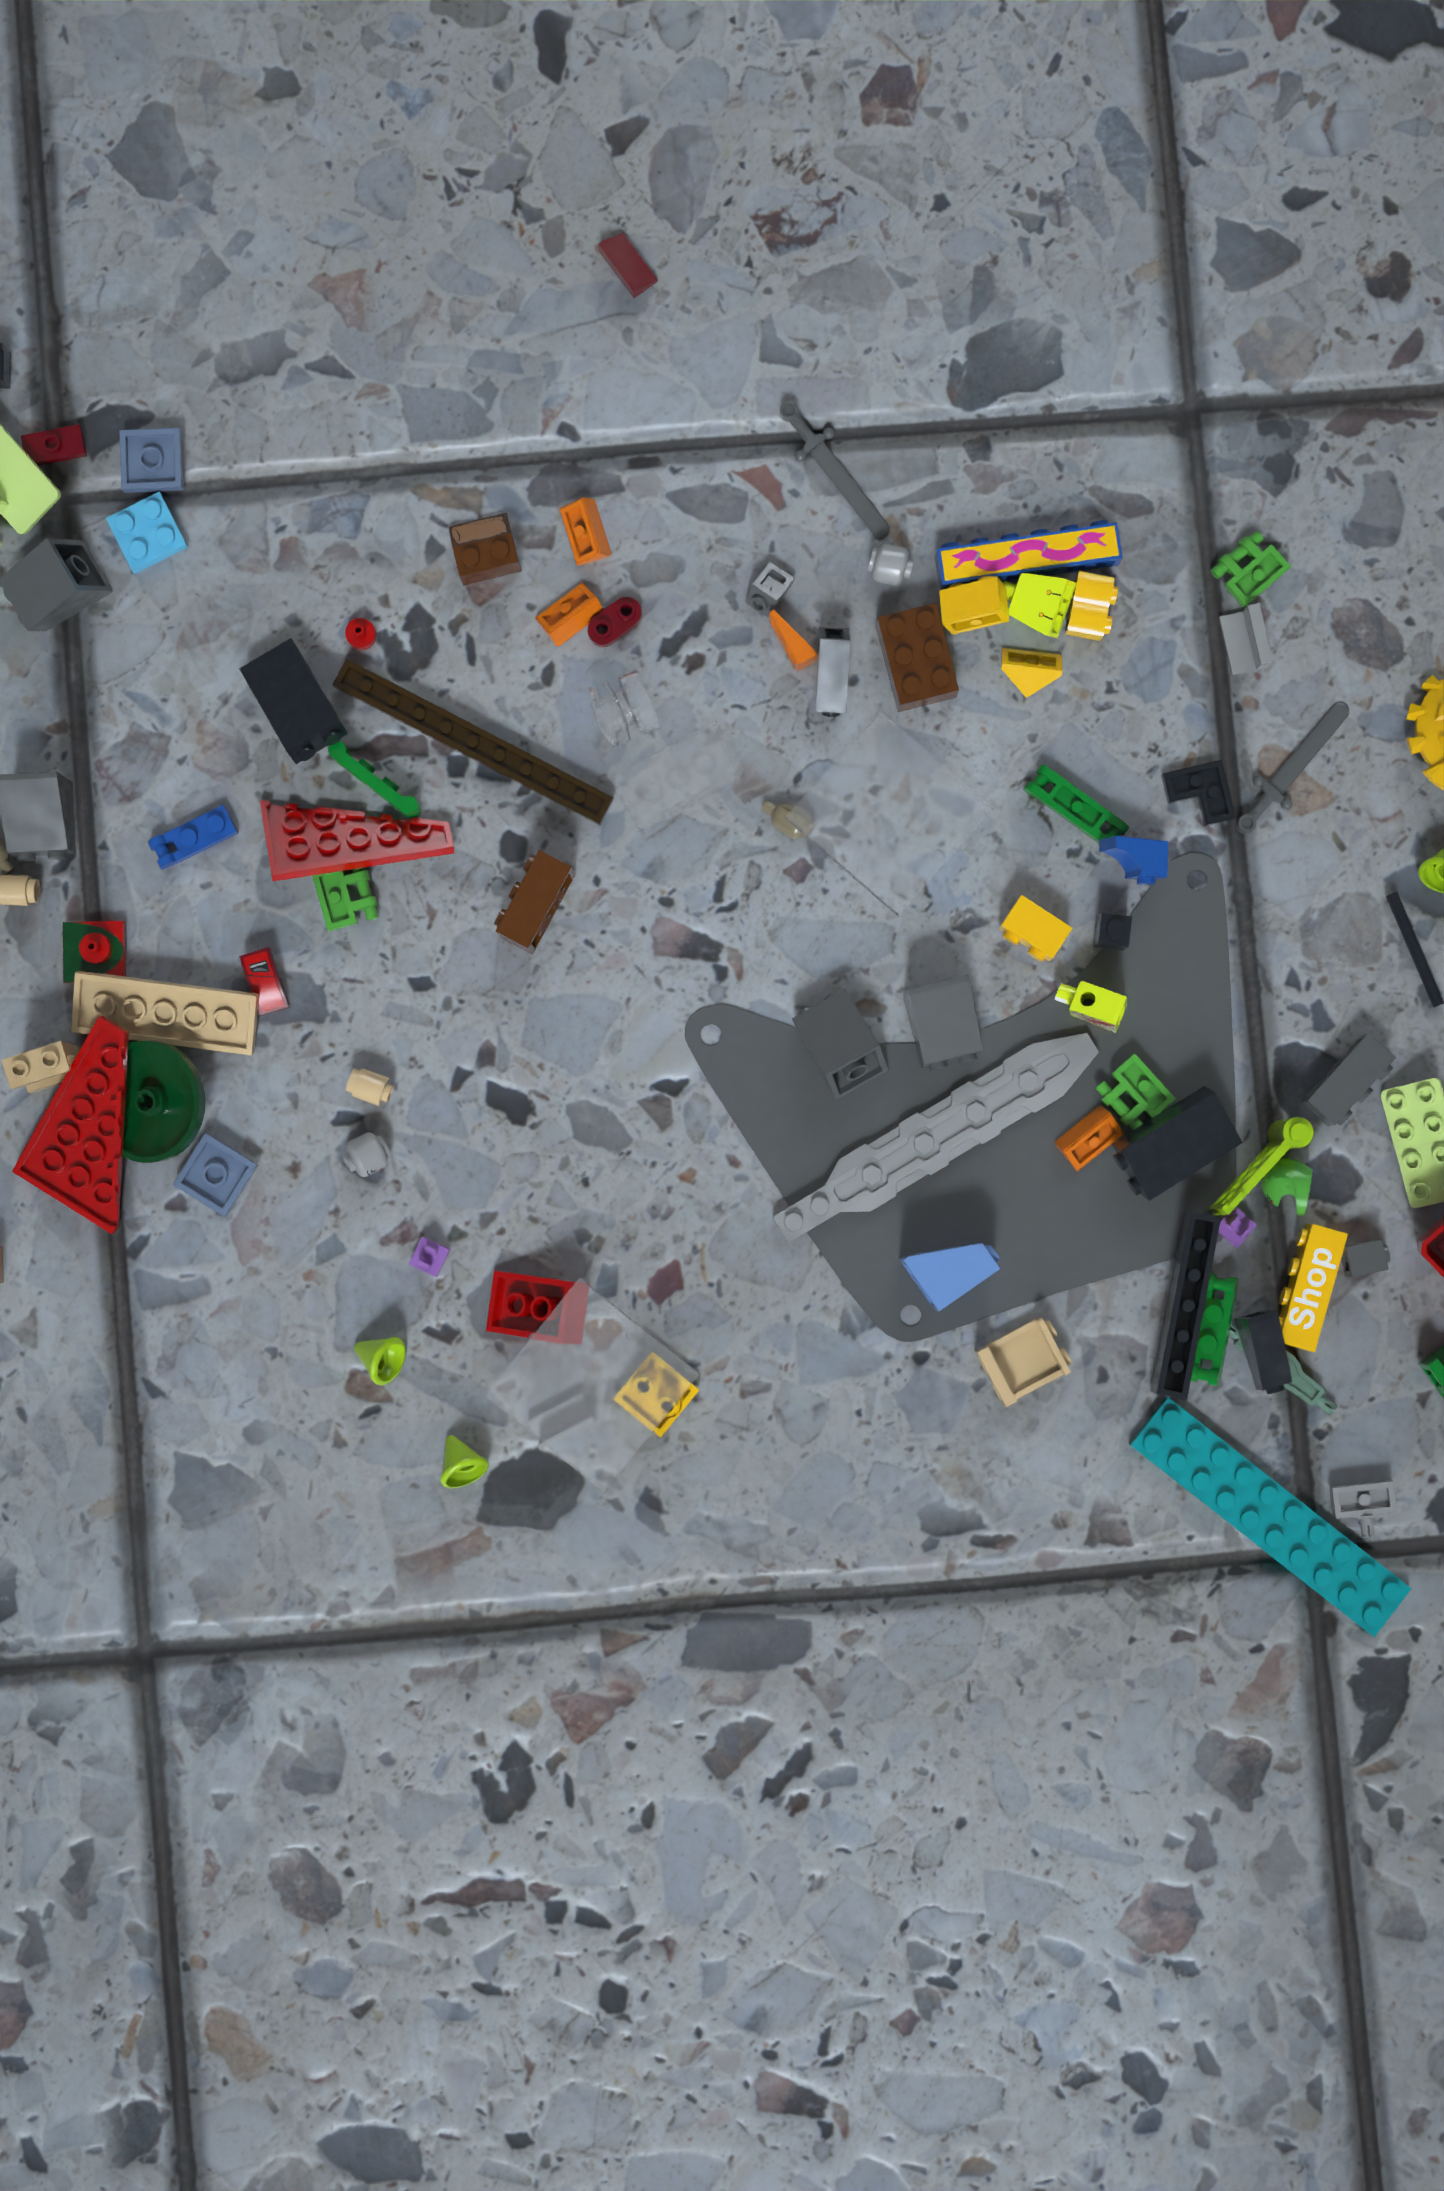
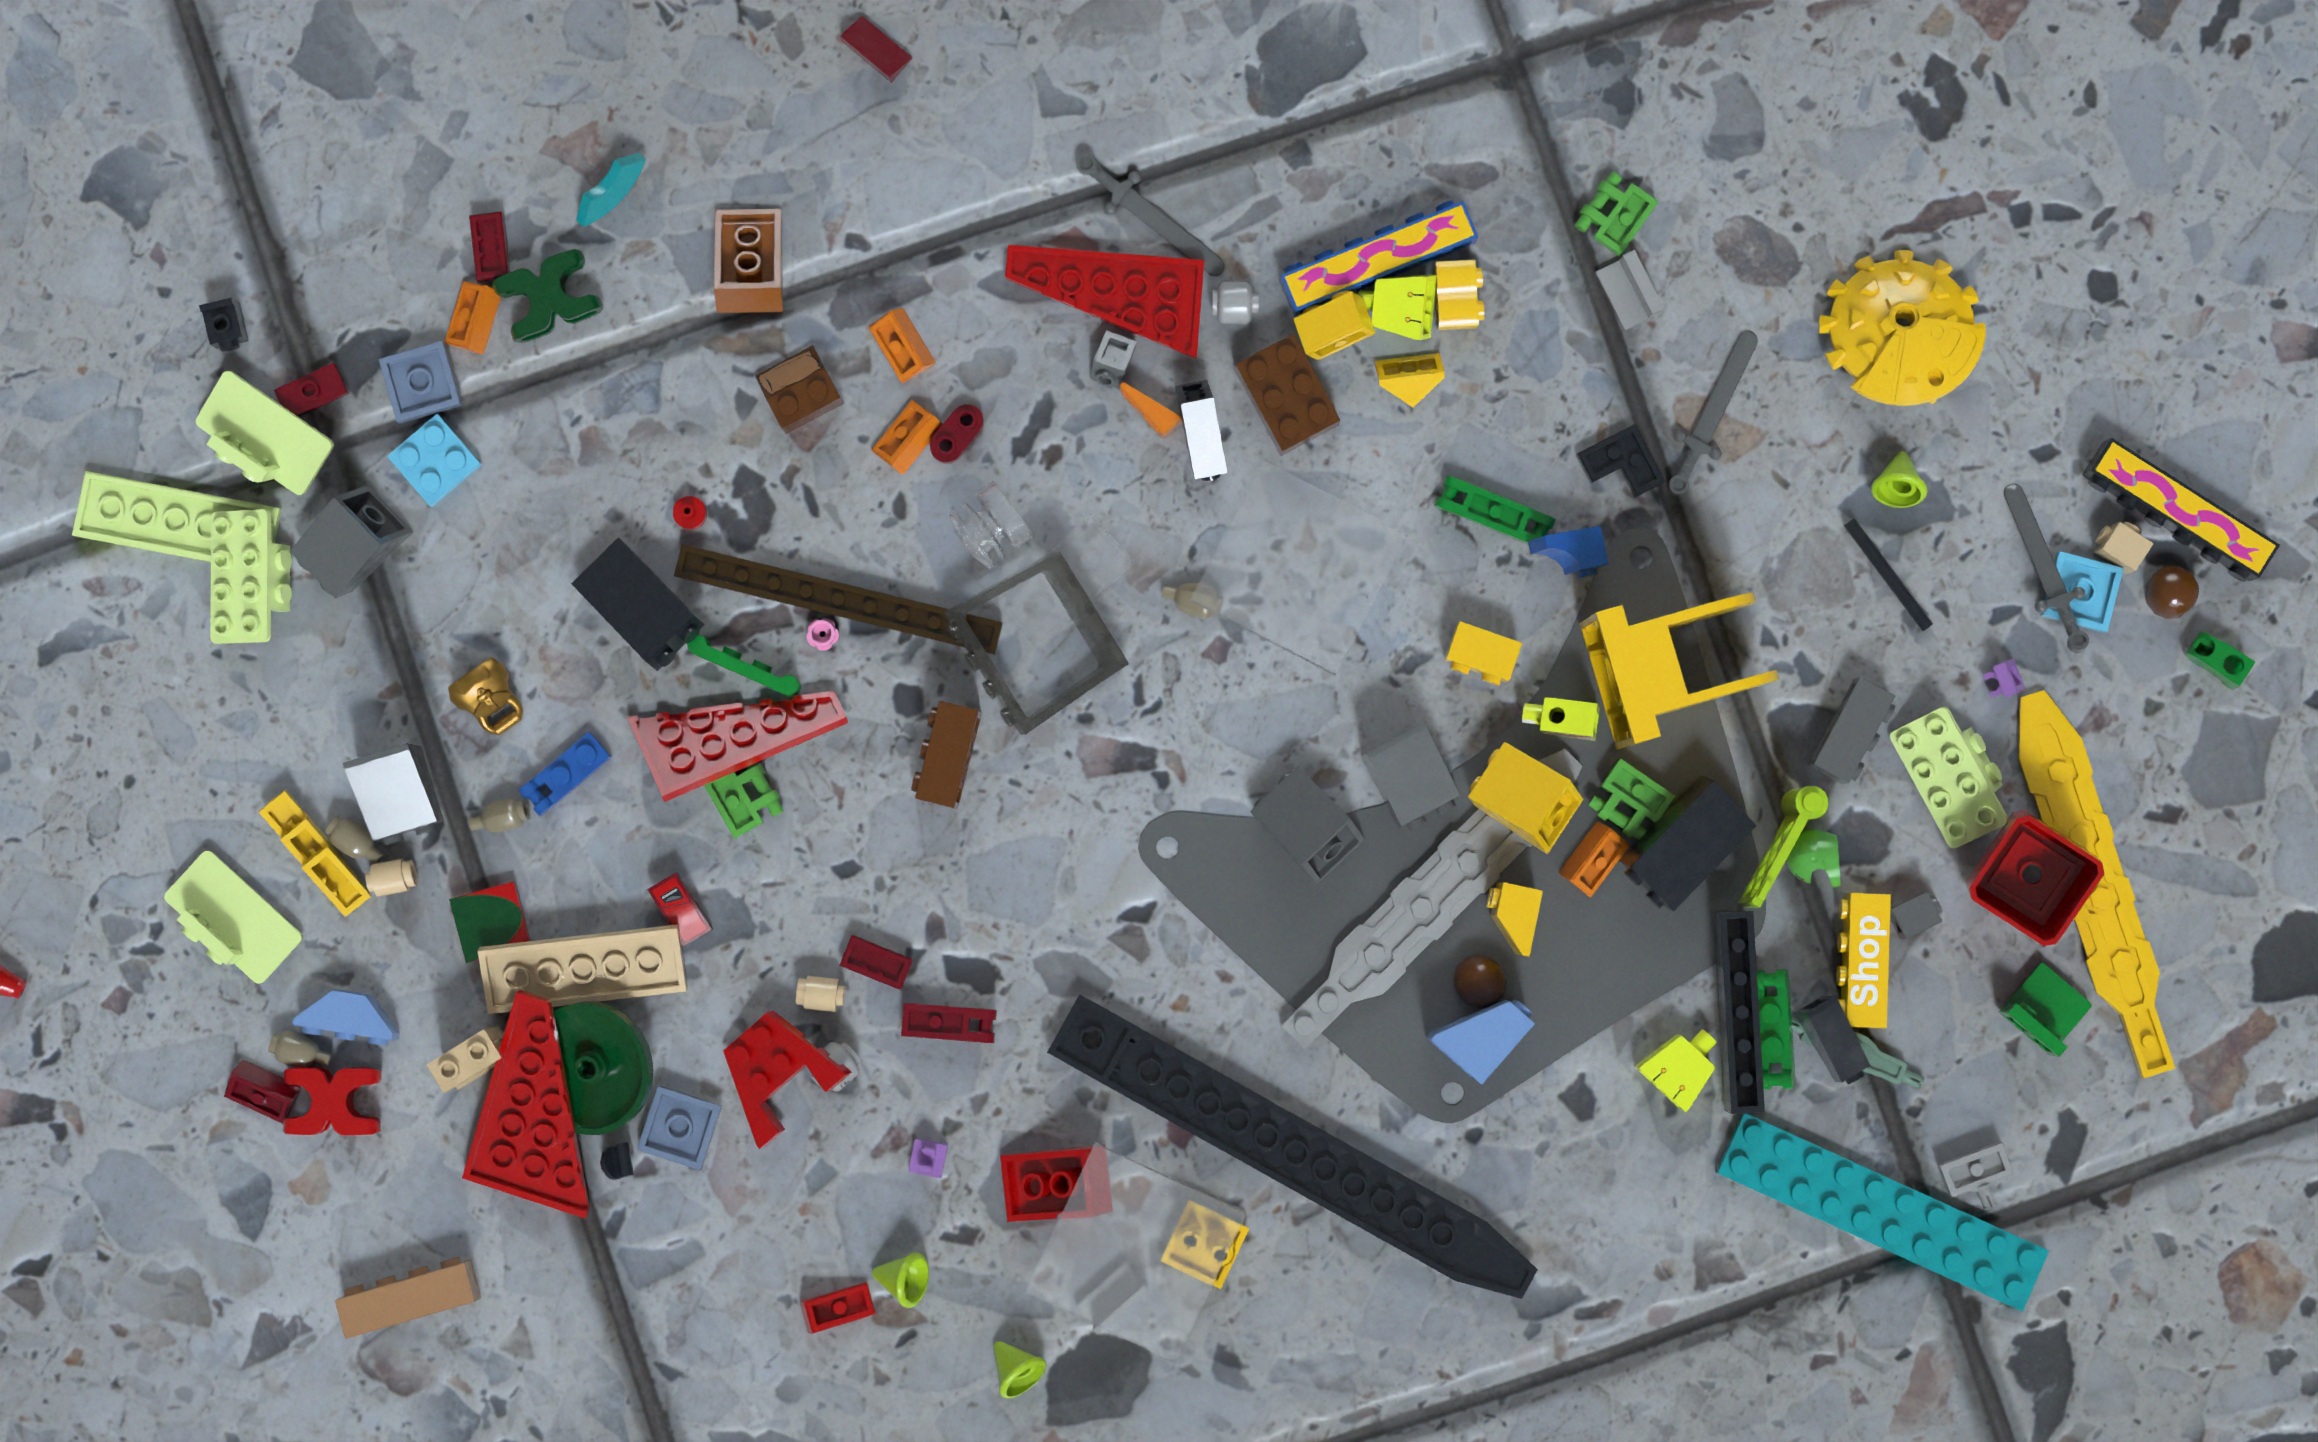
camera: 20 degrees left, 0 degrees up
(101, 951) = (499, 915): red tile -> none
(127, 860) = (501, 816): none -> dark tan plant
(139, 747) = (484, 693): none -> pearl gold piece
(152, 1191) = (617, 1161): none -> black plate
(213, 415) = (473, 317): none -> orange slope
(242, 355) = (489, 245): none -> dark red plate
(282, 411) = (547, 296): none -> dark green piece
(307, 1134) = (768, 1059): none -> red wing
(315, 1369) = (837, 1307): none -> red slope
(362, 330) = (610, 189): none -> teal tile
(426, 1071) = (876, 962): none -> dark red plate
(451, 761) = (814, 630): none -> bright pink plate
(467, 423) = (748, 261): none -> dark orange slope
(476, 1140) = (947, 1022): none -> dark red plate
(685, 805) = (1083, 615): none -> clear smoke windscreen
(754, 1330) = (1290, 1150): none -> black wedge
(801, 533) = (1132, 291): none -> red wing
(960, 1221) = (1480, 981): none -> reddish brown hair
(1006, 1168) = (1515, 914): none -> yellow slope
(1023, 1360) = (1583, 1111): tan panel -> none
(1042, 1065) = (1525, 796): none -> yellow slope
(1112, 931) = (1565, 635): black brick -> none
(1120, 1343) = (1680, 1068): none -> neon yellow torso
(1174, 976) = (1641, 671): none -> yellow piece
(1235, 1227) = (1772, 915): medium lavender tile -> none

